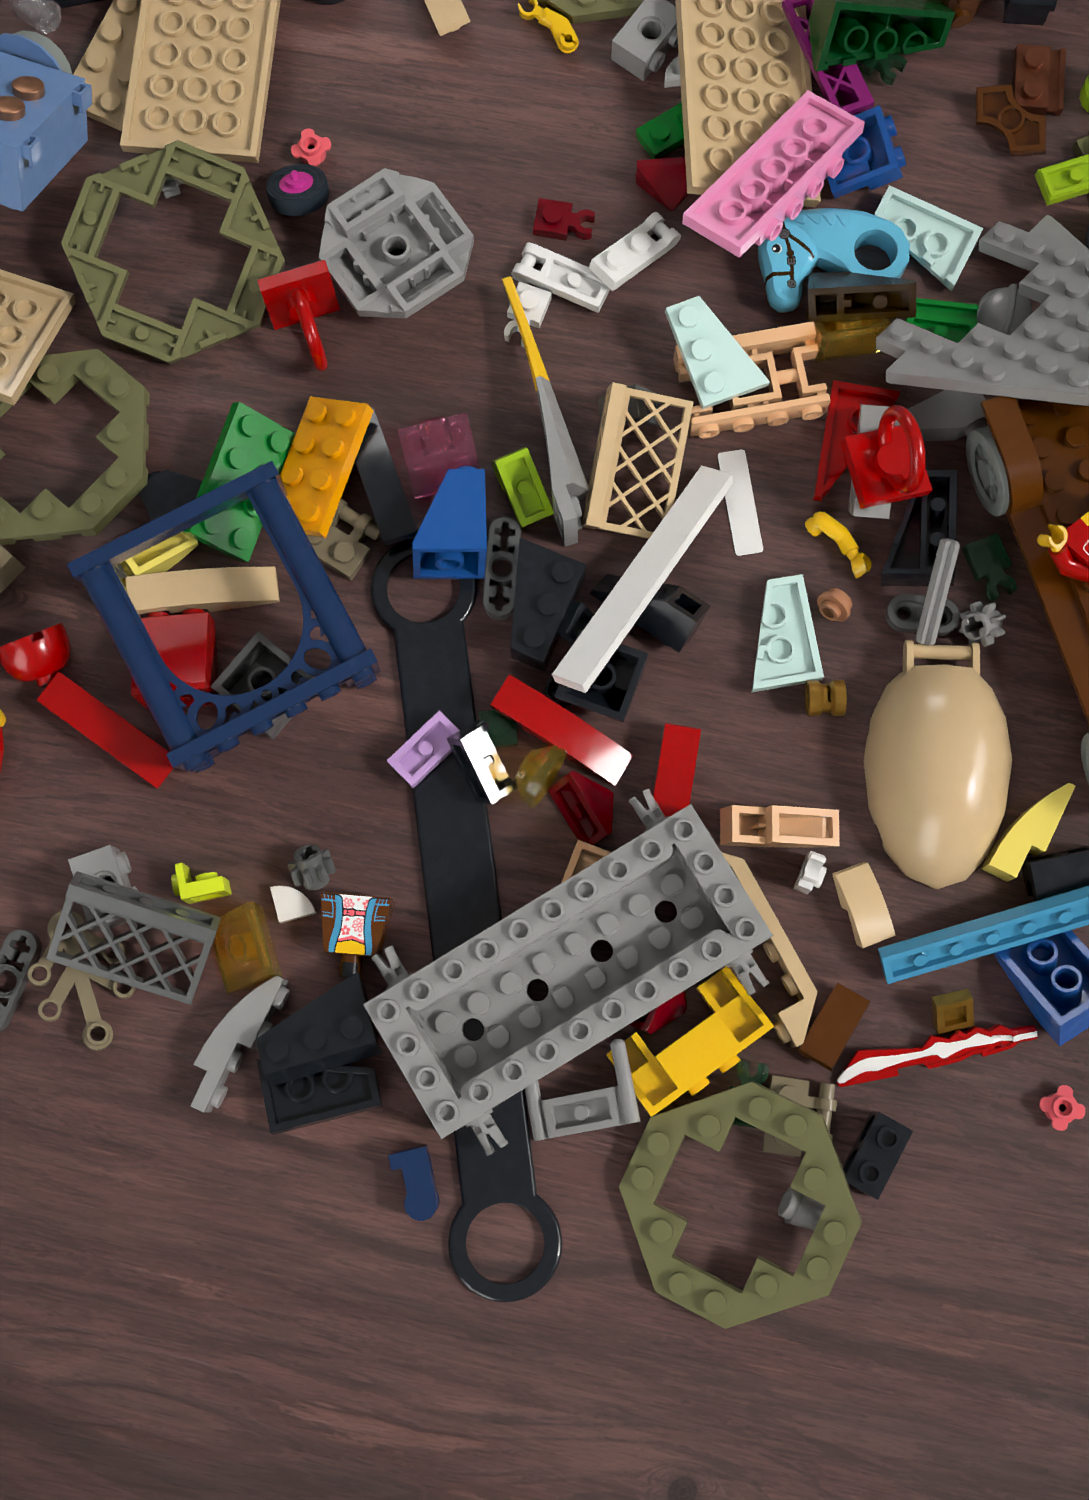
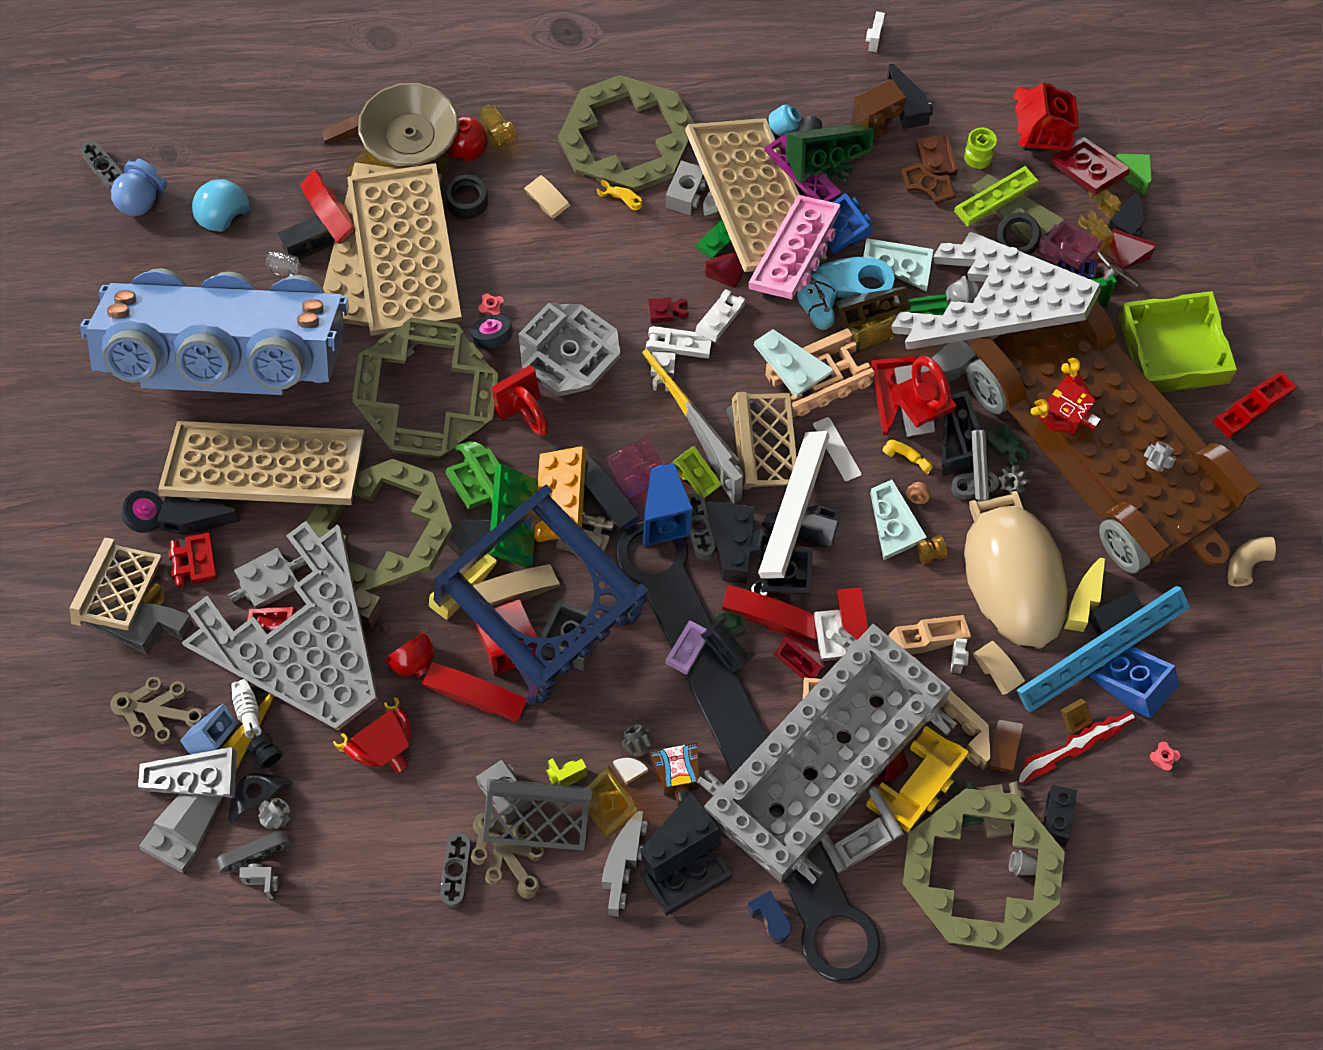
camera: 20 degrees left, 15 degrees down
(204, 404) = (475, 475): none -> bright green plate
(538, 773) = (766, 640): clear yellow piece -> none
(636, 774) = (826, 625): none -> white plate

